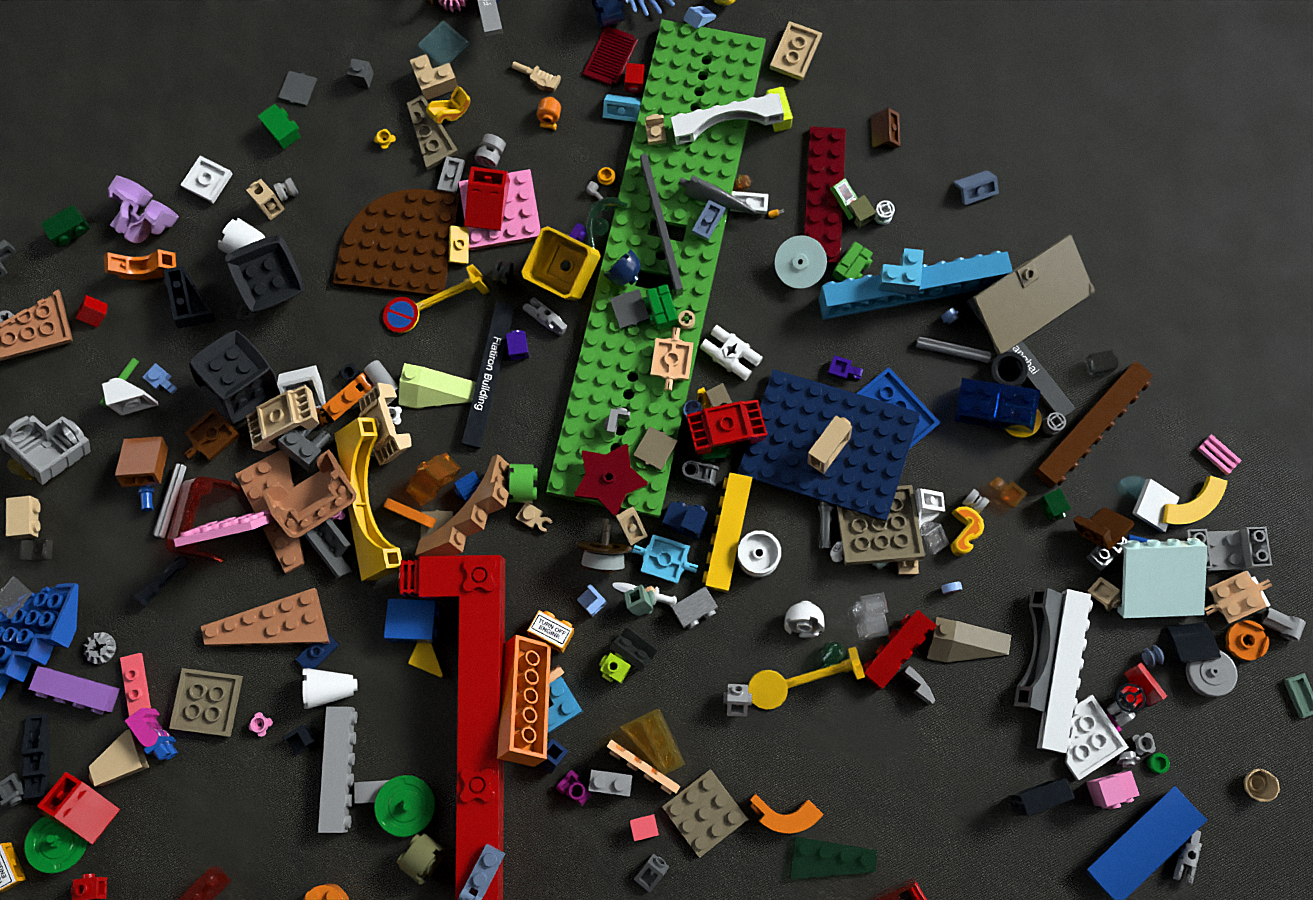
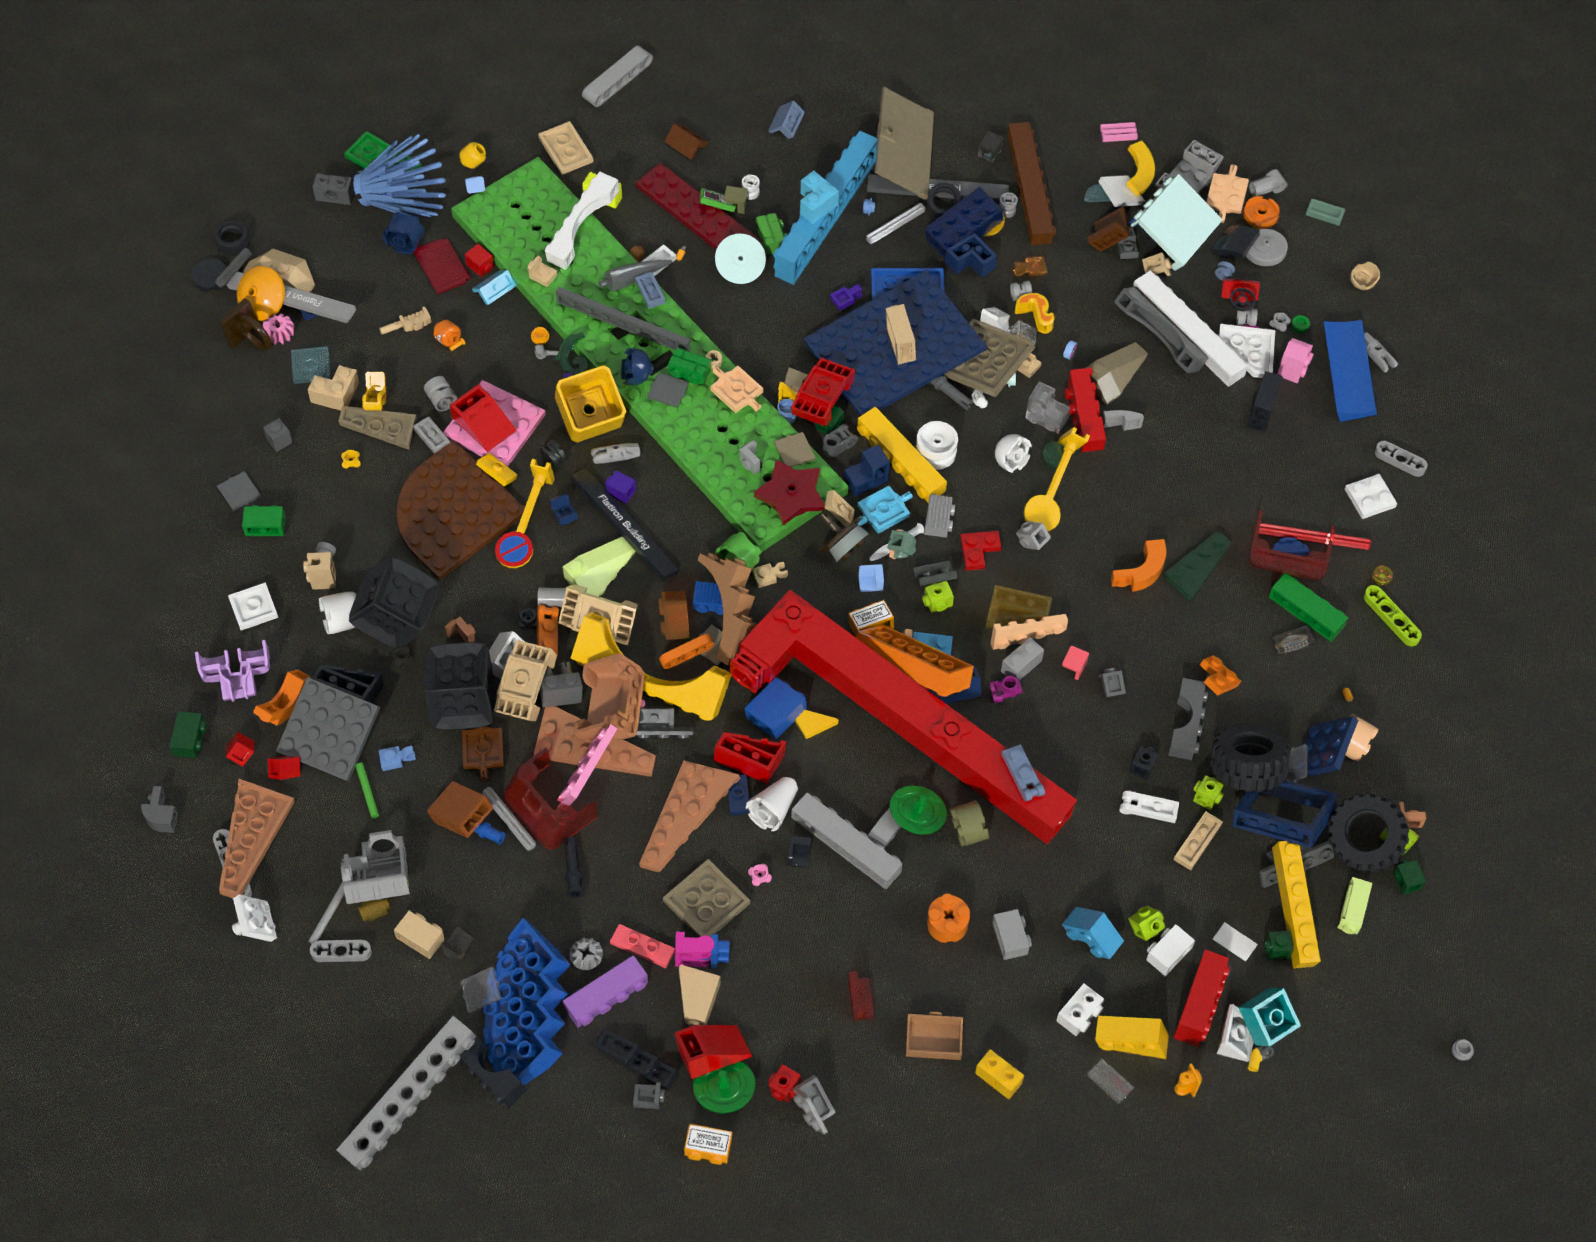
camera: 55 degrees left, 15 degrees down
(84, 269) = (240, 749): none -> red panel
(125, 397) = (392, 782): white slope -> none
(139, 315) = (328, 729): none -> dark grey plate
(300, 339) = (459, 626): none -> nougat bracket
(352, 637) = (750, 756): none -> red wedge
(462, 321) = (563, 509): none -> dark blue bracket
(691, 657) = (975, 544): none -> red plate
(705, 813) = (1097, 619): dark tan plate -> none
(731, 361) = (769, 360): white pin -> none
(899, 30) = (617, 76): none -> light grey beam
(975, 433) = (972, 253): none -> dark blue brick
(1055, 504) = (1067, 247): dark green brick -> none
(1128, 759) = (1282, 337): light grey plate -> none

